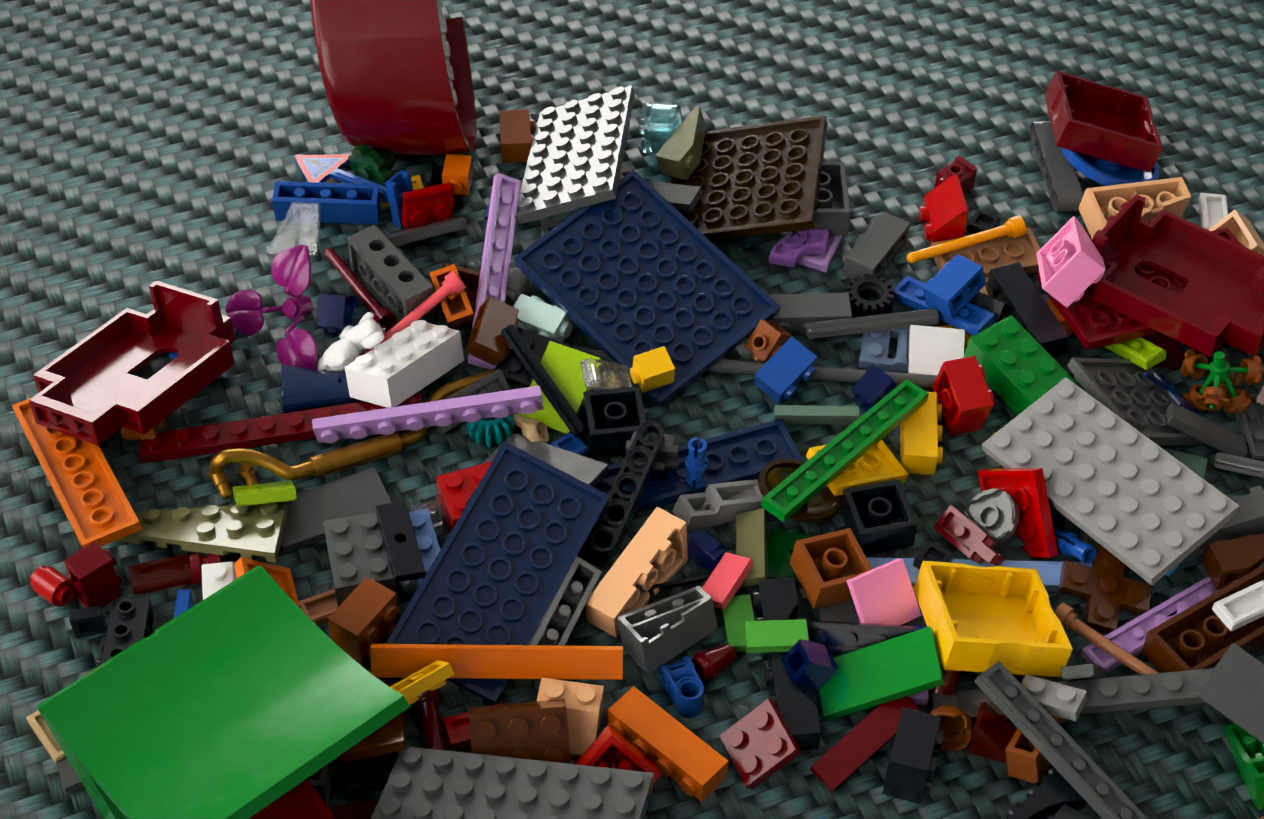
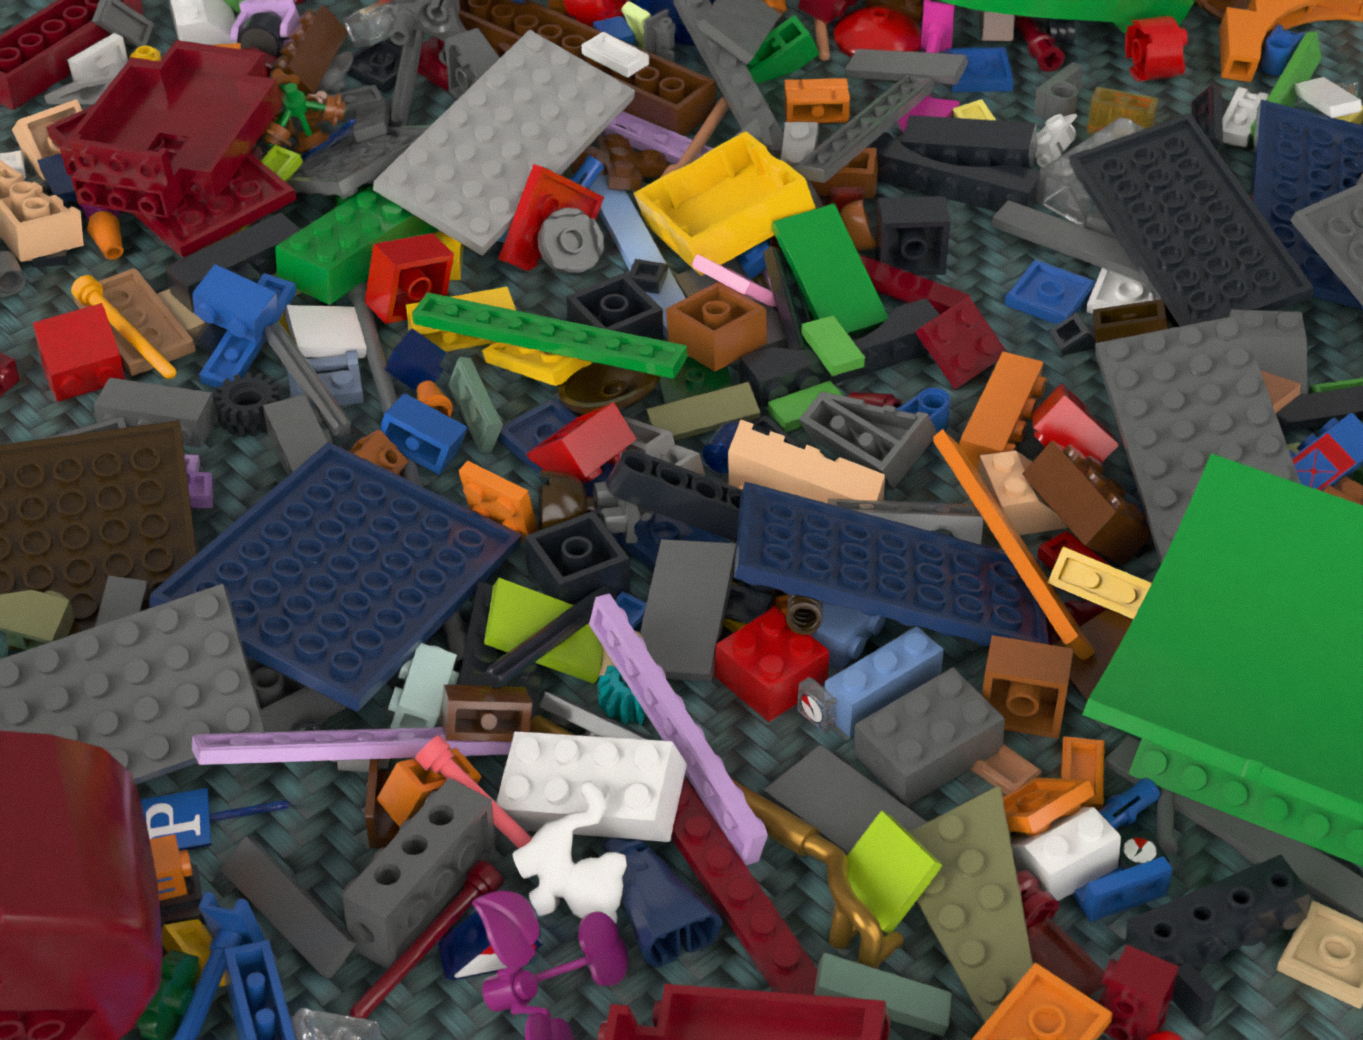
camera: 110 degrees left, 5 degrees down
(186, 467) = (906, 999): none -> sand green tile
(400, 541) = (904, 671): black tile -> none
(427, 205) = (229, 887): red plate -> none
(604, 374) = (526, 570): clear plate -> none
(652, 369) = (490, 529): yellow brick -> none
(676, 417) = (561, 498): none -> dark brown cylinder
(688, 390) = (498, 499): none -> orange plate
(696, 462) = (632, 432): blue pin -> none
(727, 578) = (769, 413): coral tile -> none
(729, 448) = (585, 443): none -> red slope
(809, 663) = (855, 314): clear blue brick -> none
(830, 394) = (432, 396): none -> orange cone
(968, 536) = (604, 254): dark red hinge -> none
(1069, 263) = (182, 197): bright pink slope -> none
(1171, 775) = (817, 100): none -> orange brick

